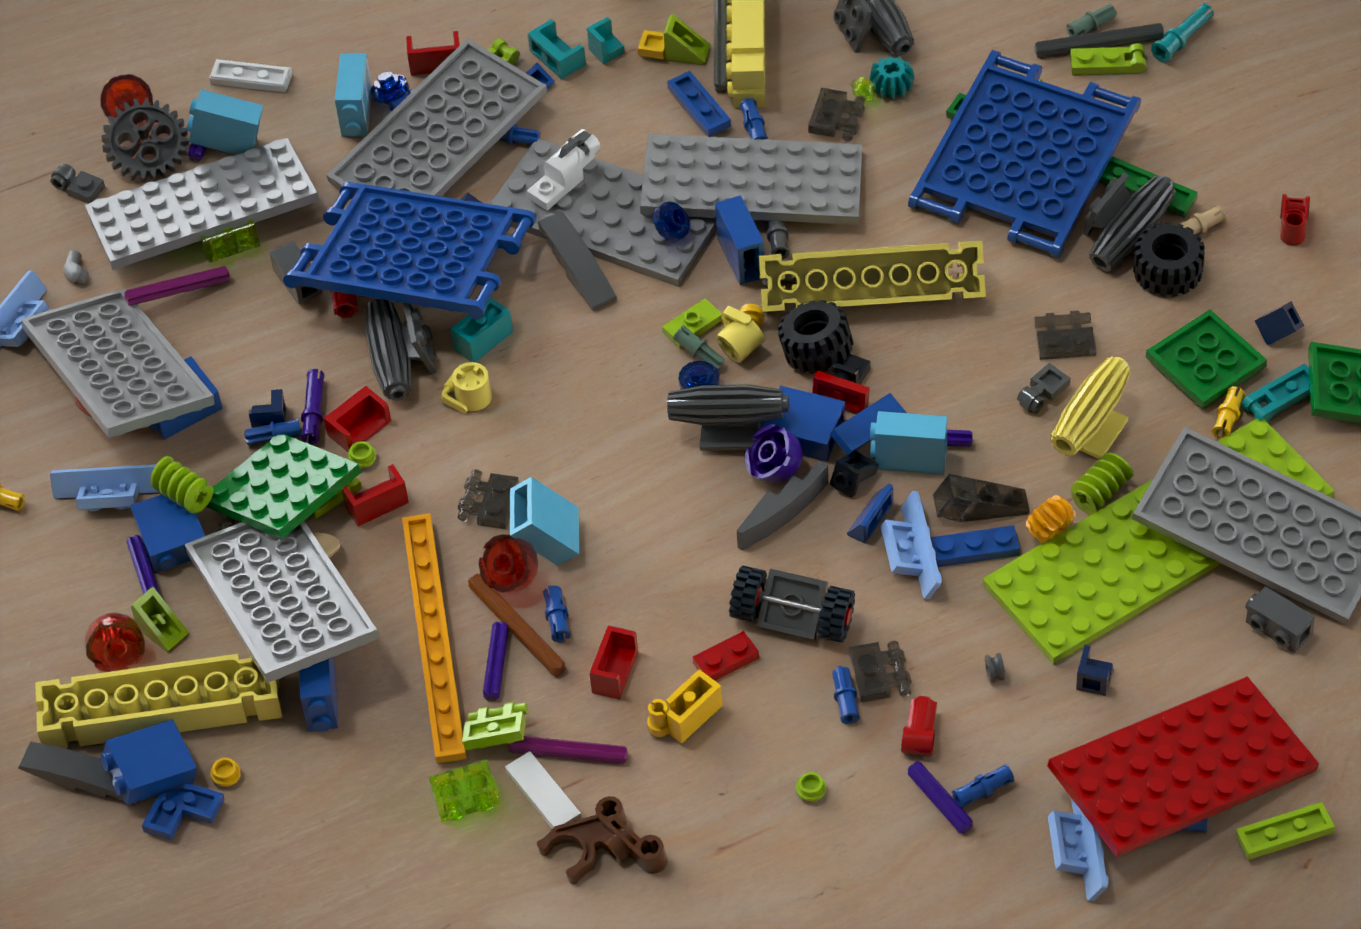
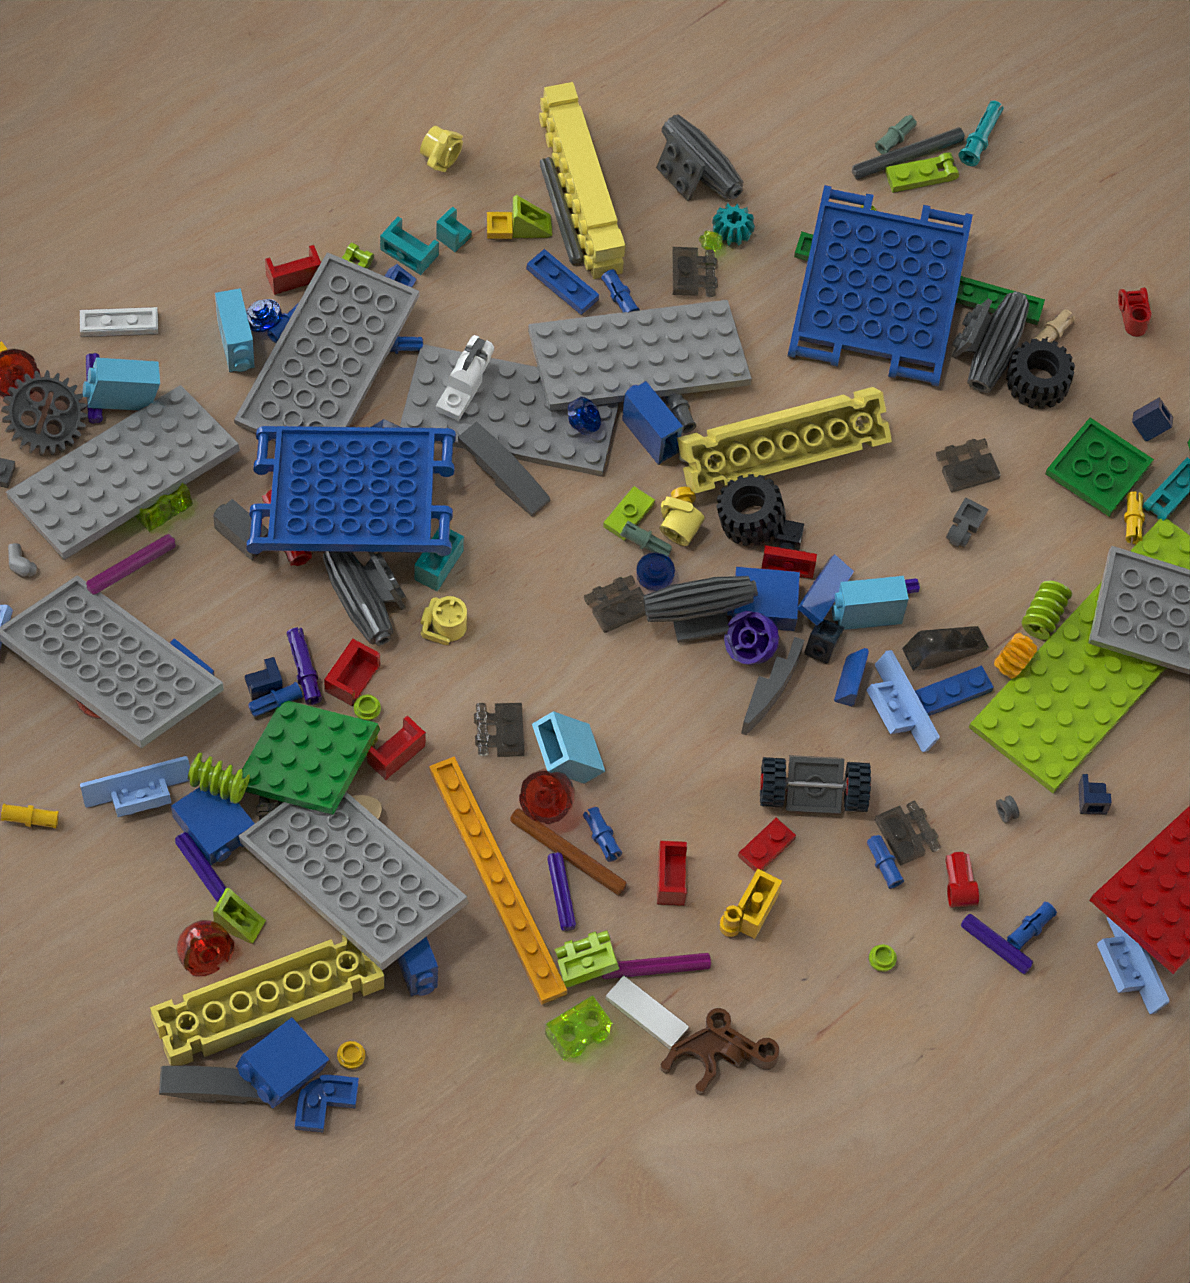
camera: 25 degrees left, 10 degrees up
(646, 409) = (619, 610): none -> clear smoke plate
(1089, 418) = (1020, 545): light yellow plate -> none

